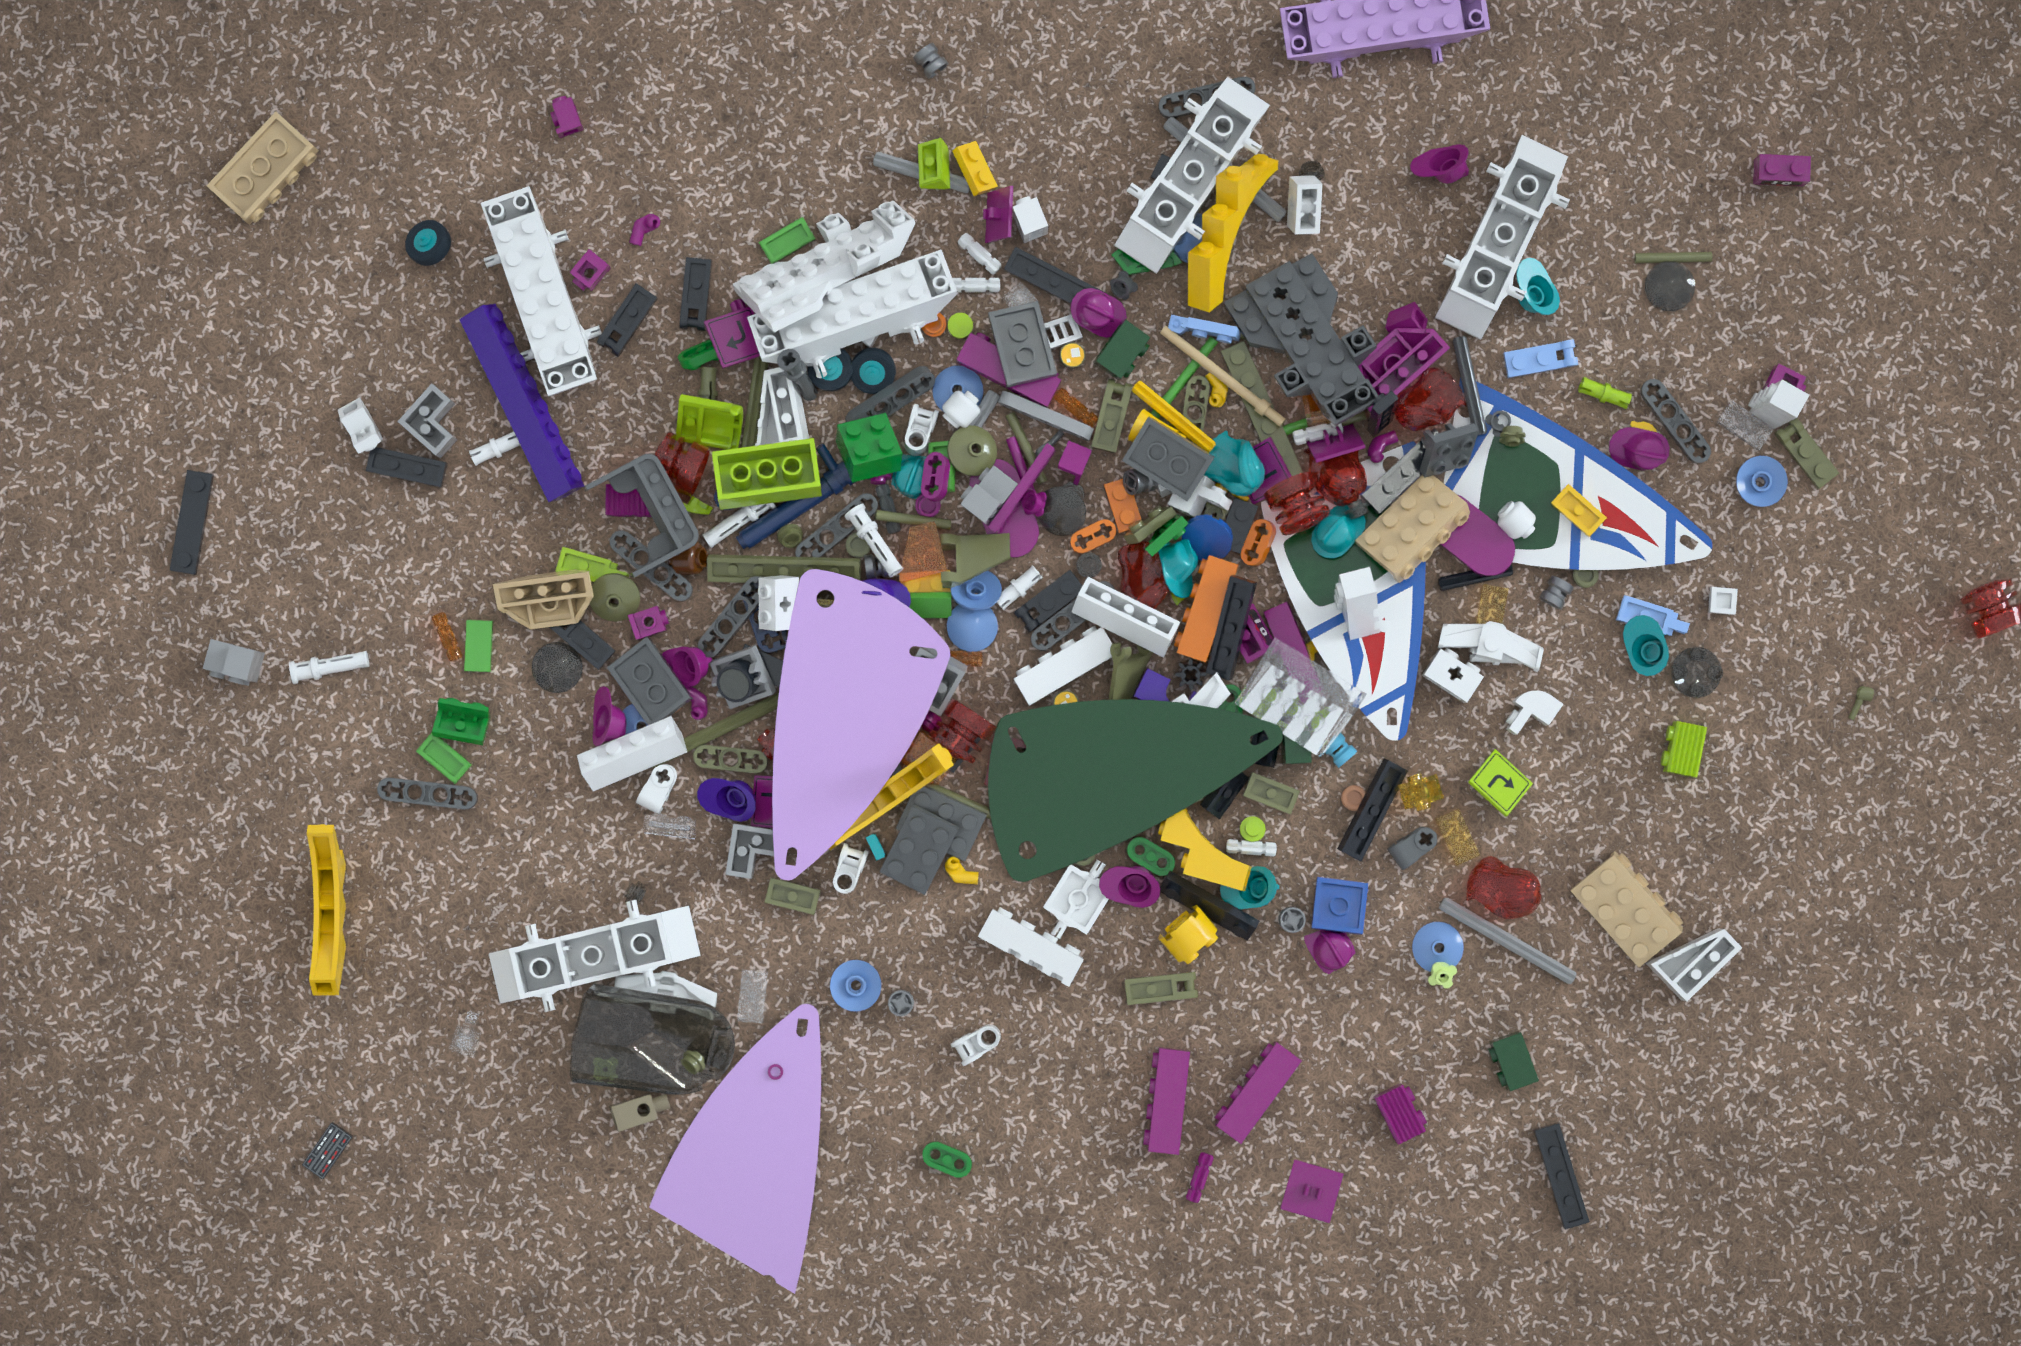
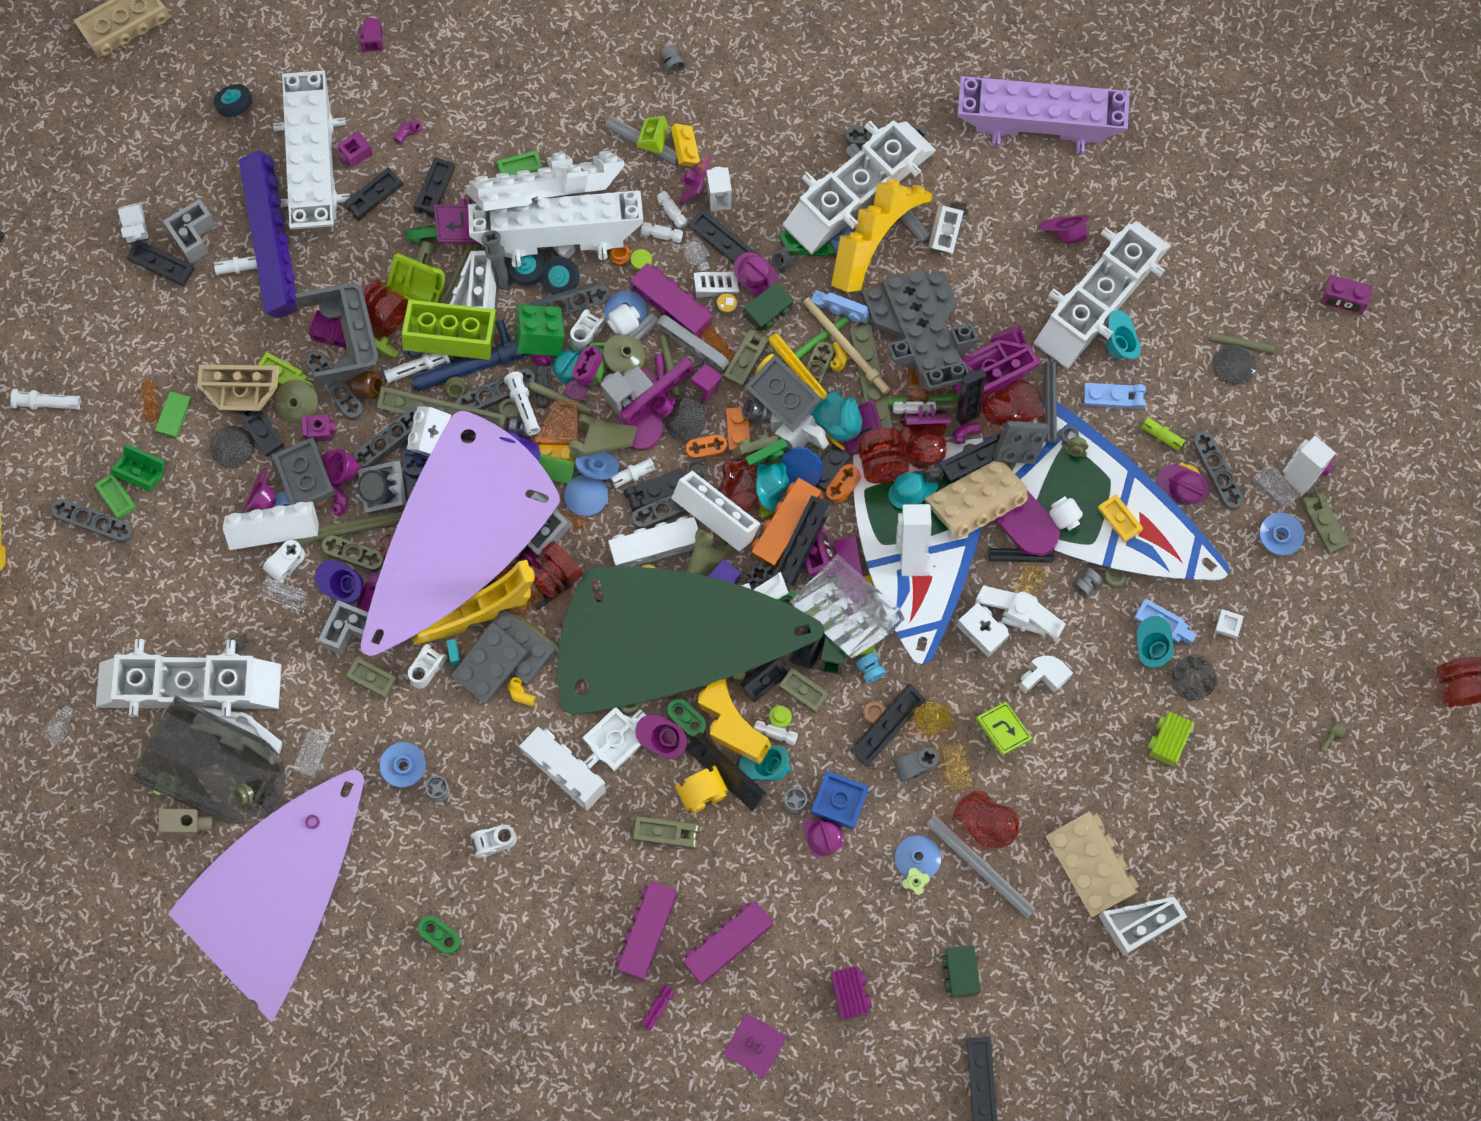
camera: 15 degrees right, 15 degrees down
(1022, 344) = (686, 279): plate -> none

